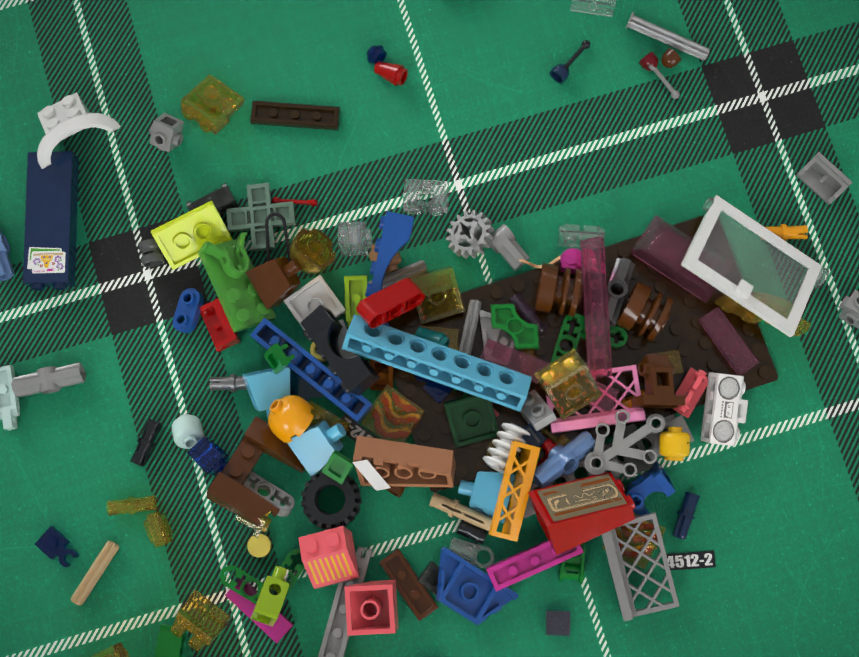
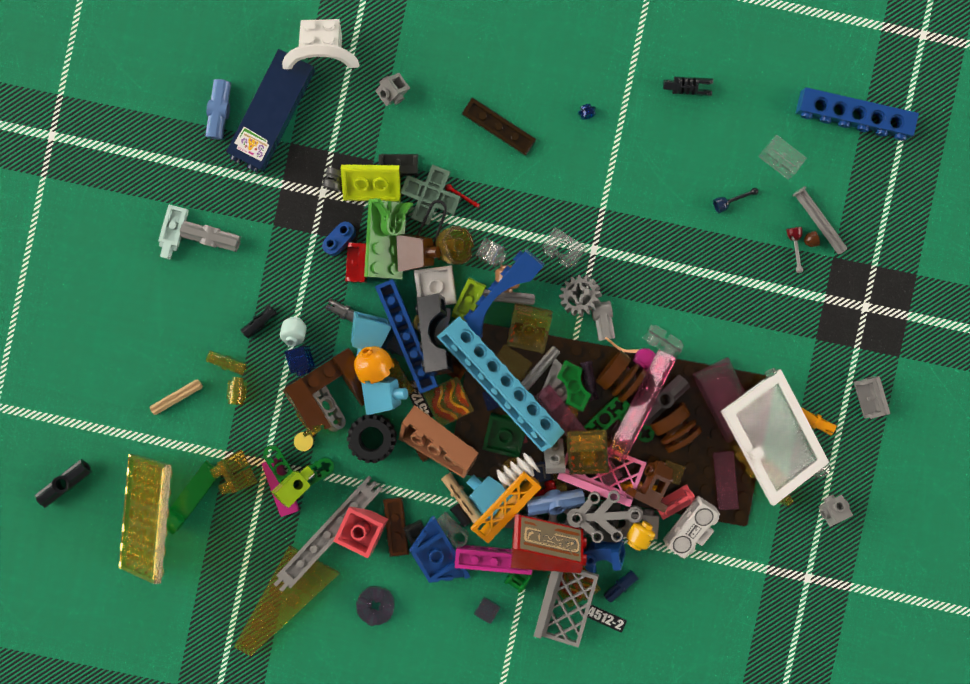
camera: 25 degrees right, 10 degrees up
(54, 544) = (156, 360): clear blue plate -> none
(211, 104) = (438, 84): clear yellow plate -> none
(276, 357) = (385, 316): green tile -> none
(329, 556) = (349, 478): coral slope -> none
(338, 467) = (388, 420): green tile -> none
(371, 475) = (409, 438): white sticker -> none
(390, 302) = (490, 321): red beam -> none
(391, 72) = (591, 133): red cone -> none
(434, 336) = (508, 360): teal cone -> none

